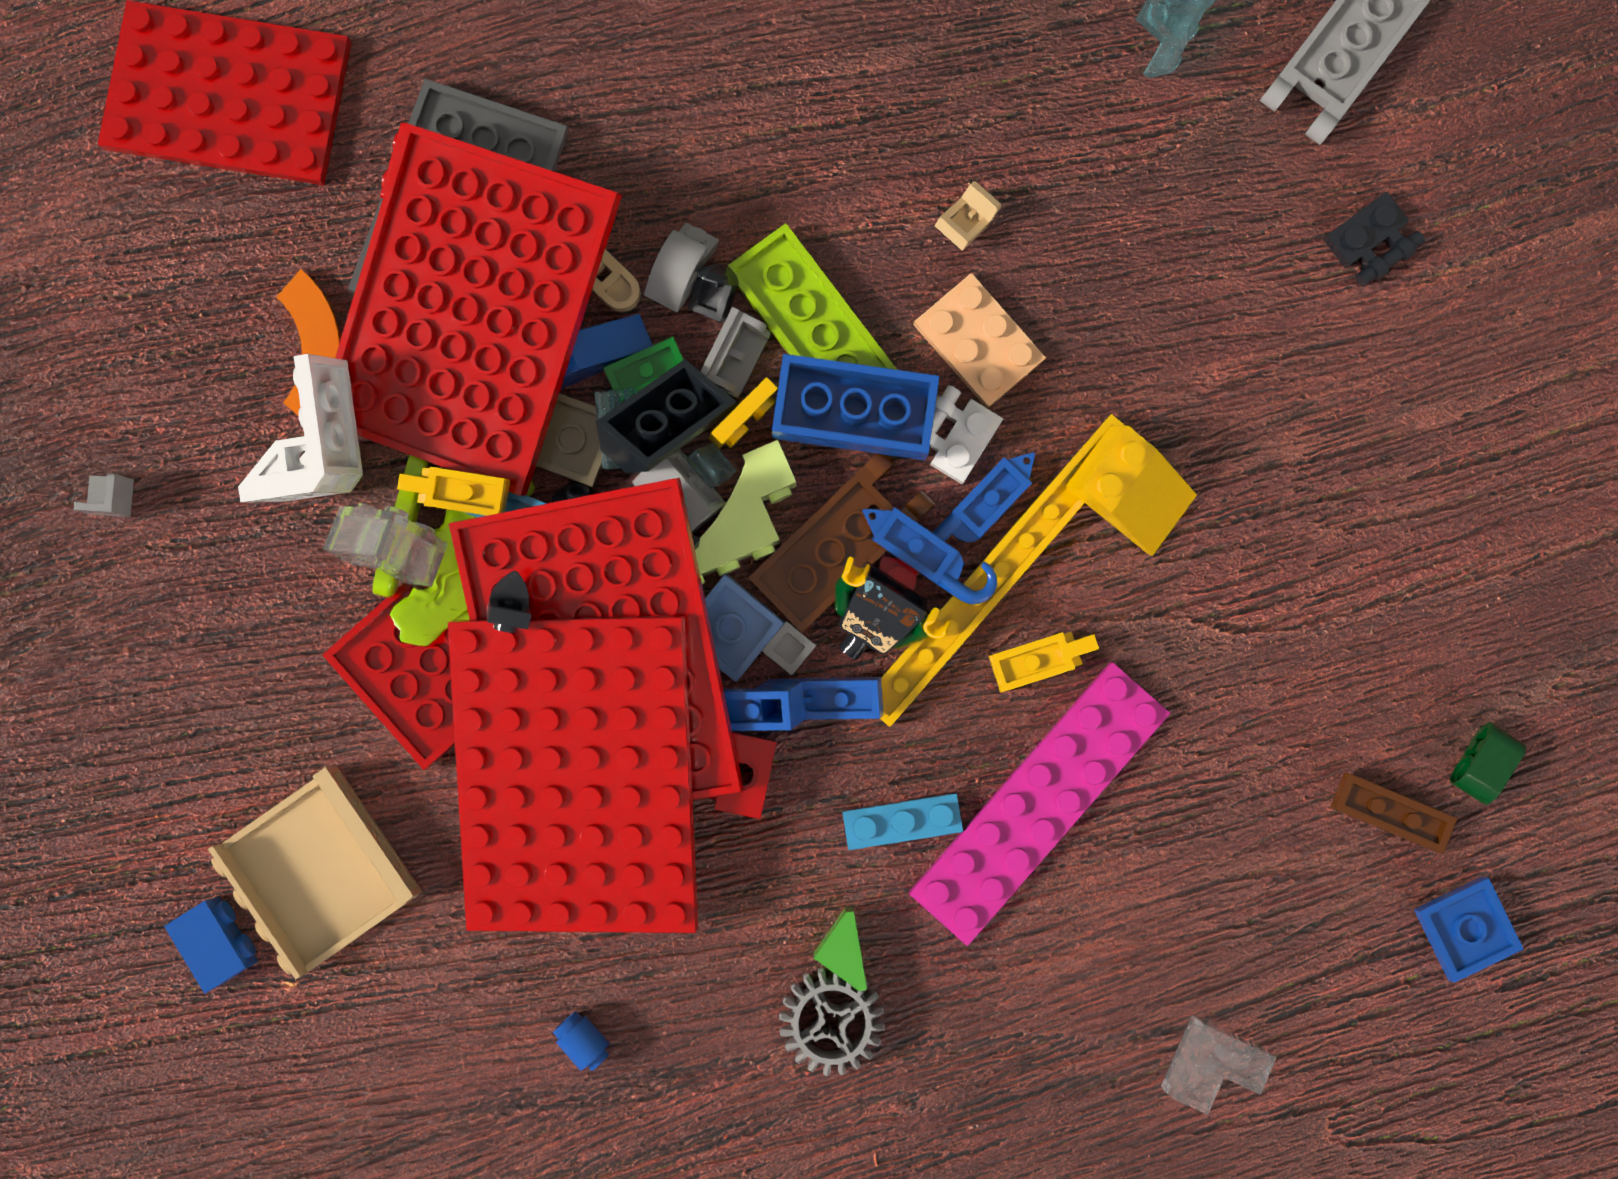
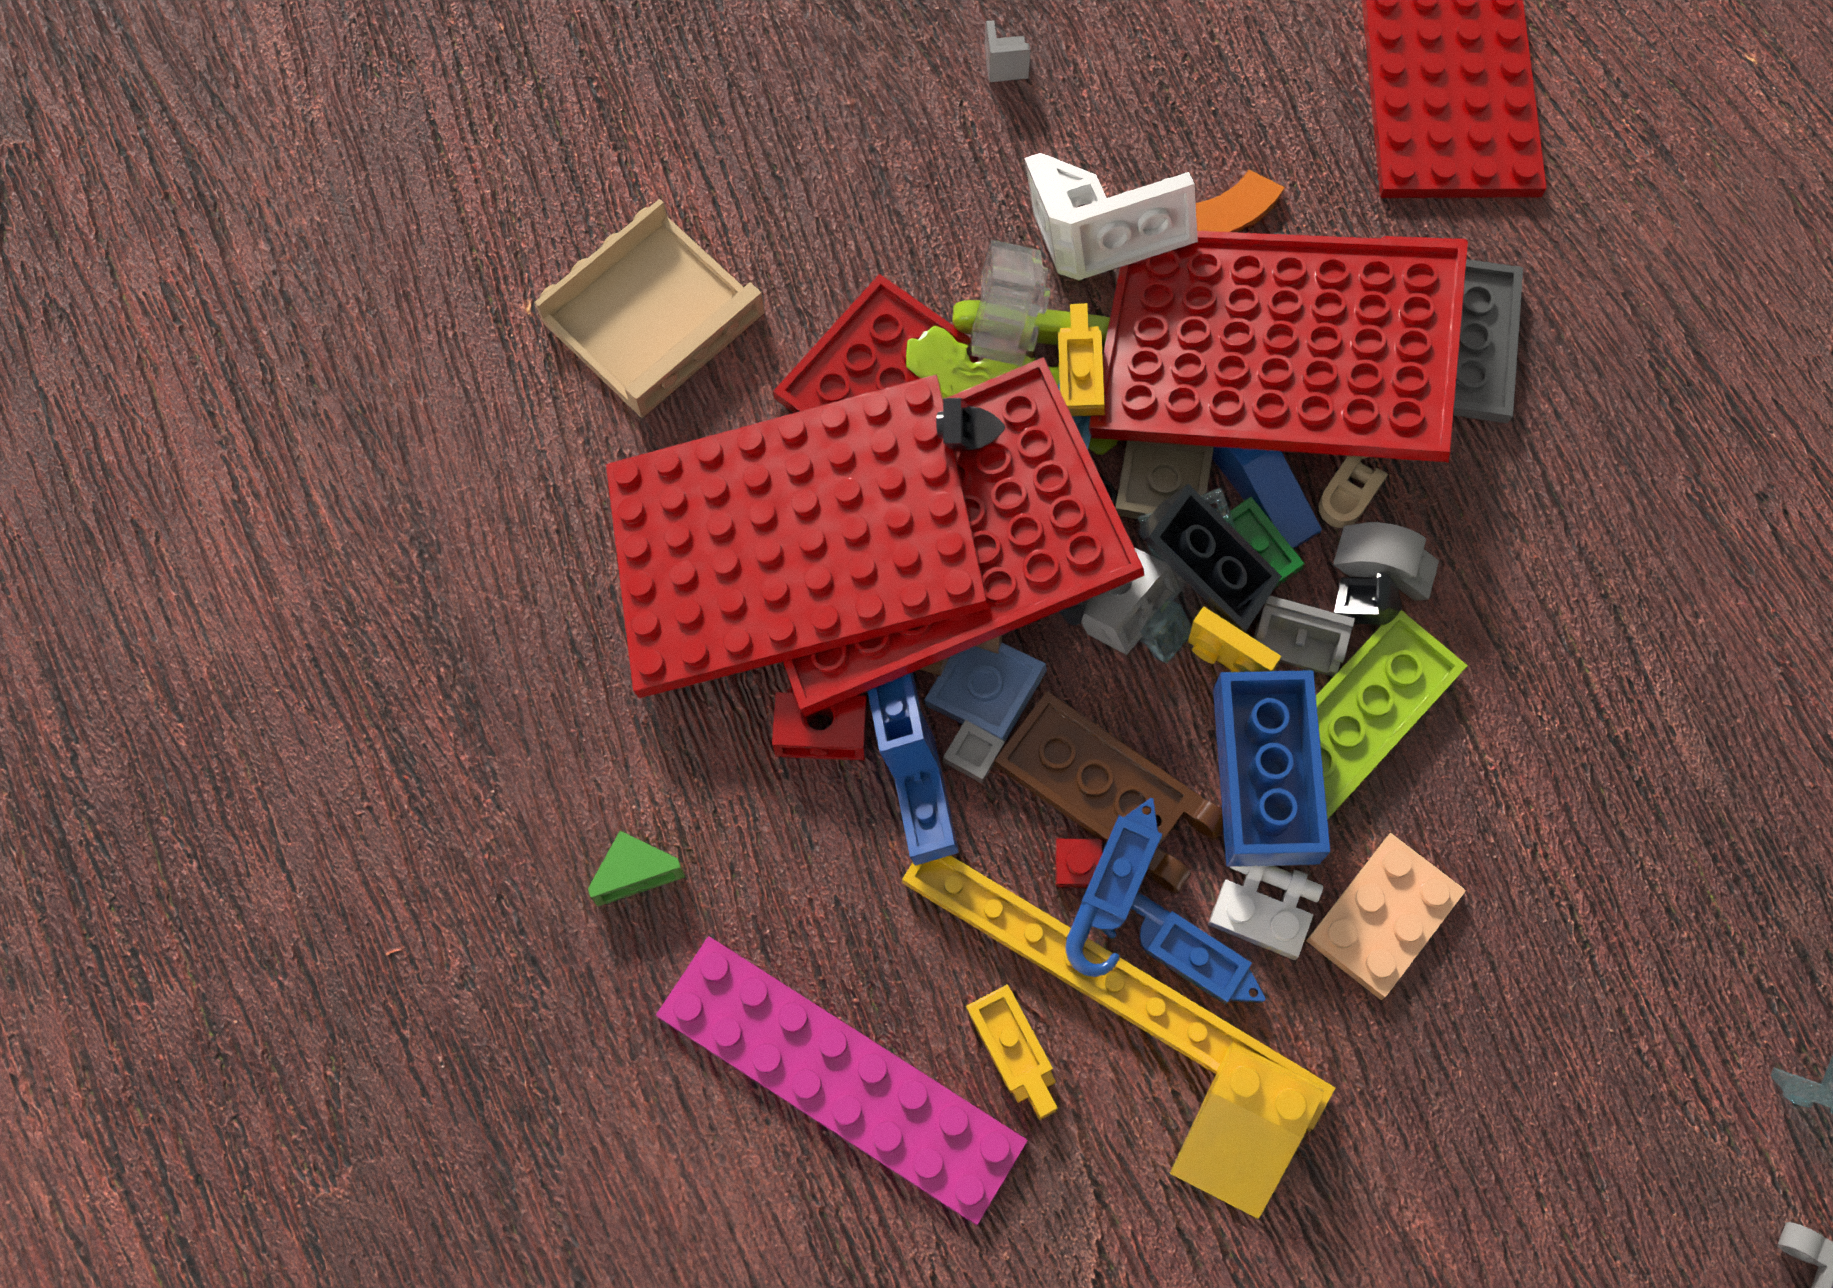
camera: 85 degrees right, 15 degrees down
(212, 943) = (562, 224): blue brick -> none
(581, 1041) = (498, 599): blue brick -> none
(744, 523) = (1109, 676): yellowish green arch -> none
(817, 1030) = (536, 879): light grey gear -> none
(881, 612) = (1037, 840): torso -> none
(902, 821) = (793, 917): dark azure plate -> none
(968, 216) = (1532, 874): tan bracket -> none

